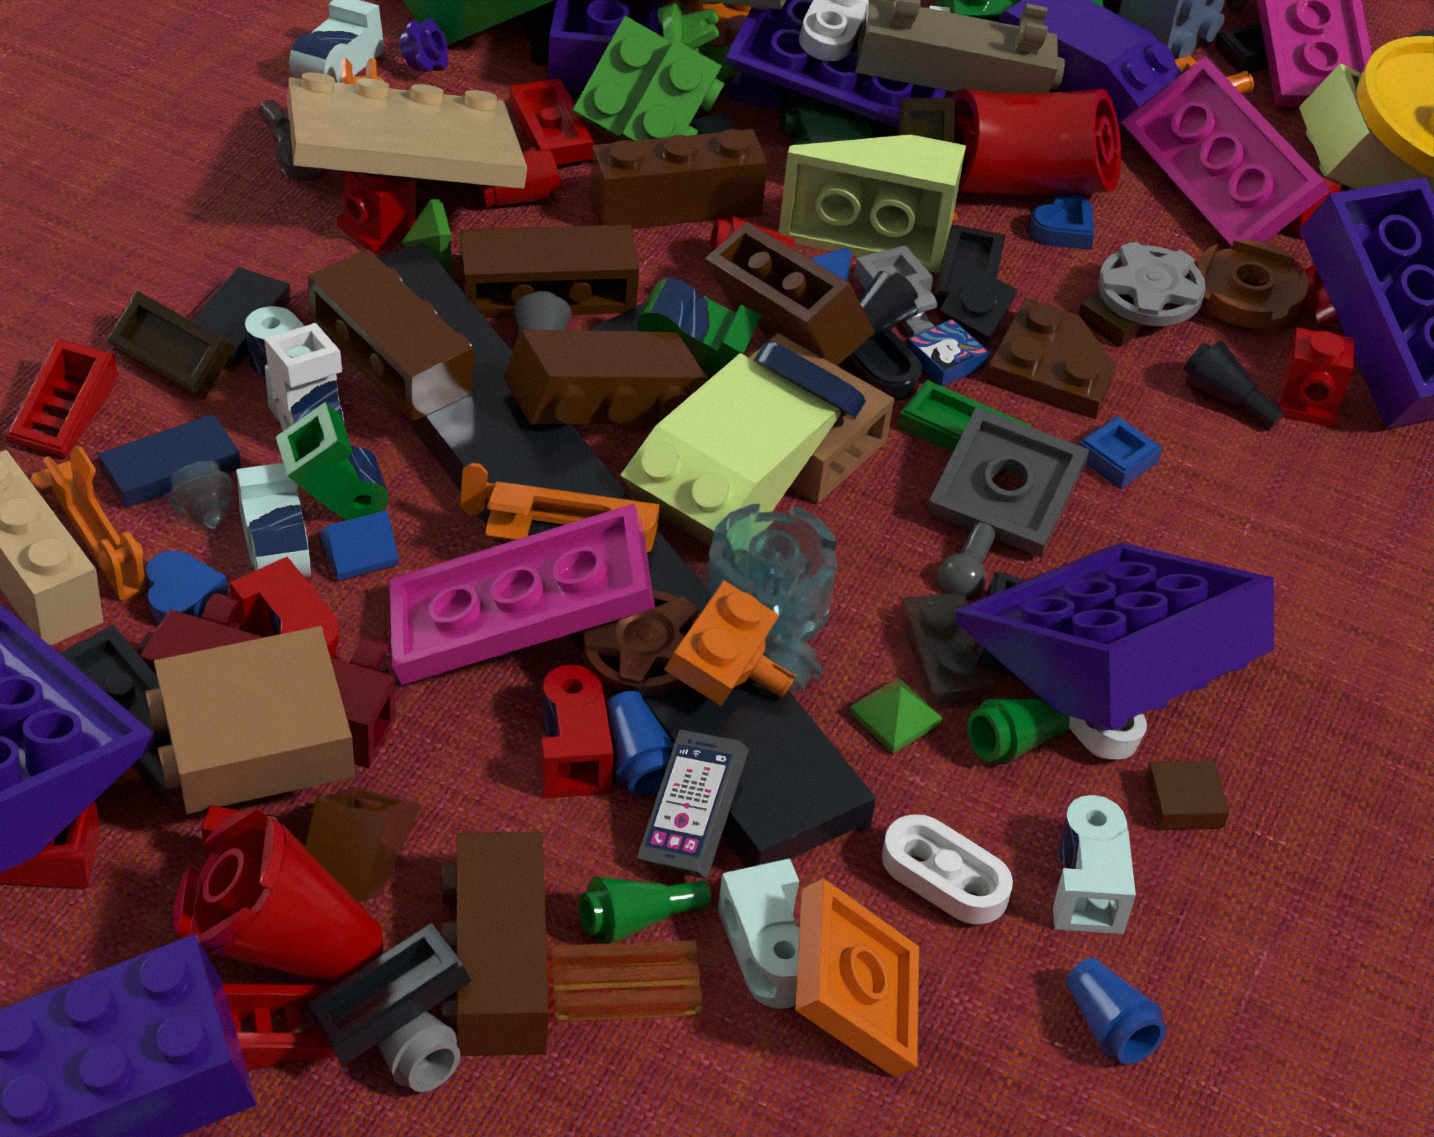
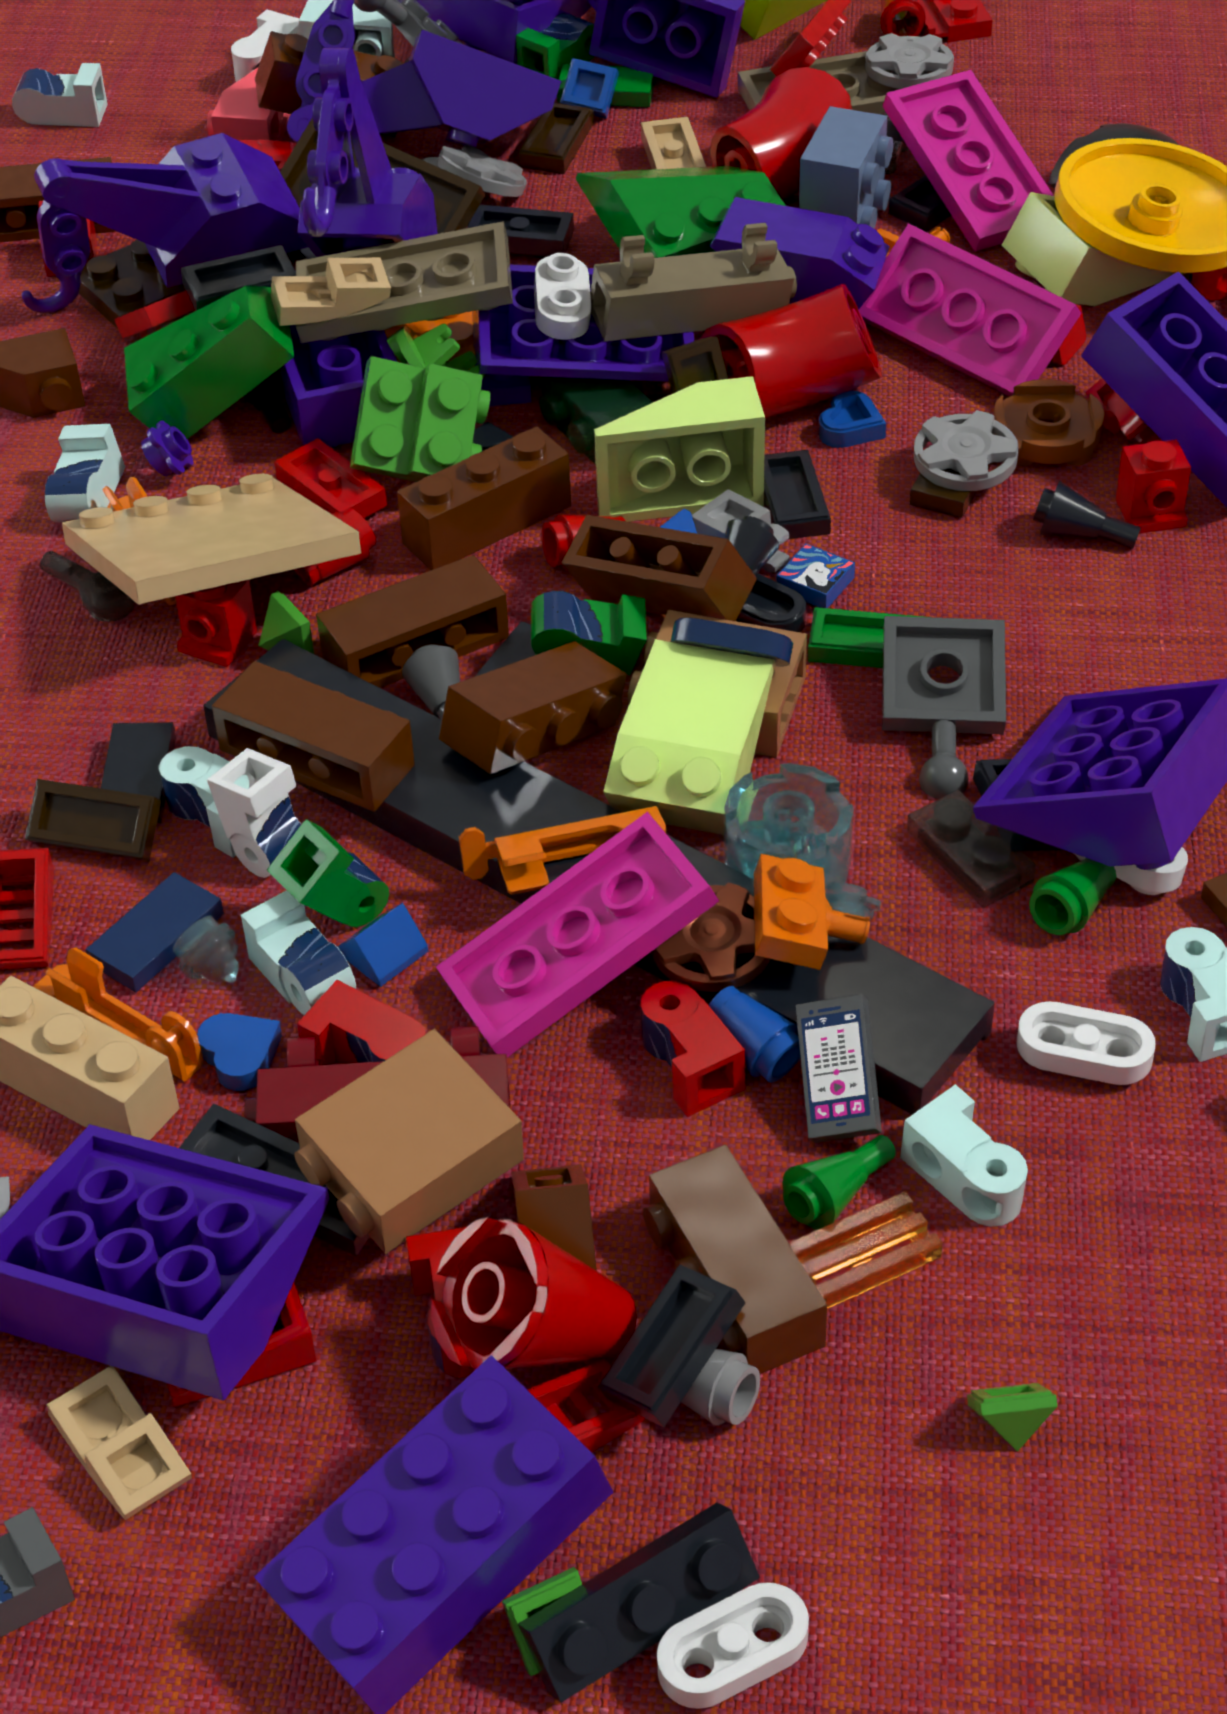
camera: 15 degrees left, 0 degrees up
(858, 978) = (1073, 1168): orange plate -> none
(895, 715) = (957, 923): bright green slope -> none
(978, 303) = (822, 520): black plate -> none
(1053, 360) = (913, 550): reddish brown plate -> none
(1120, 452) = (1023, 610): blue tile -> none

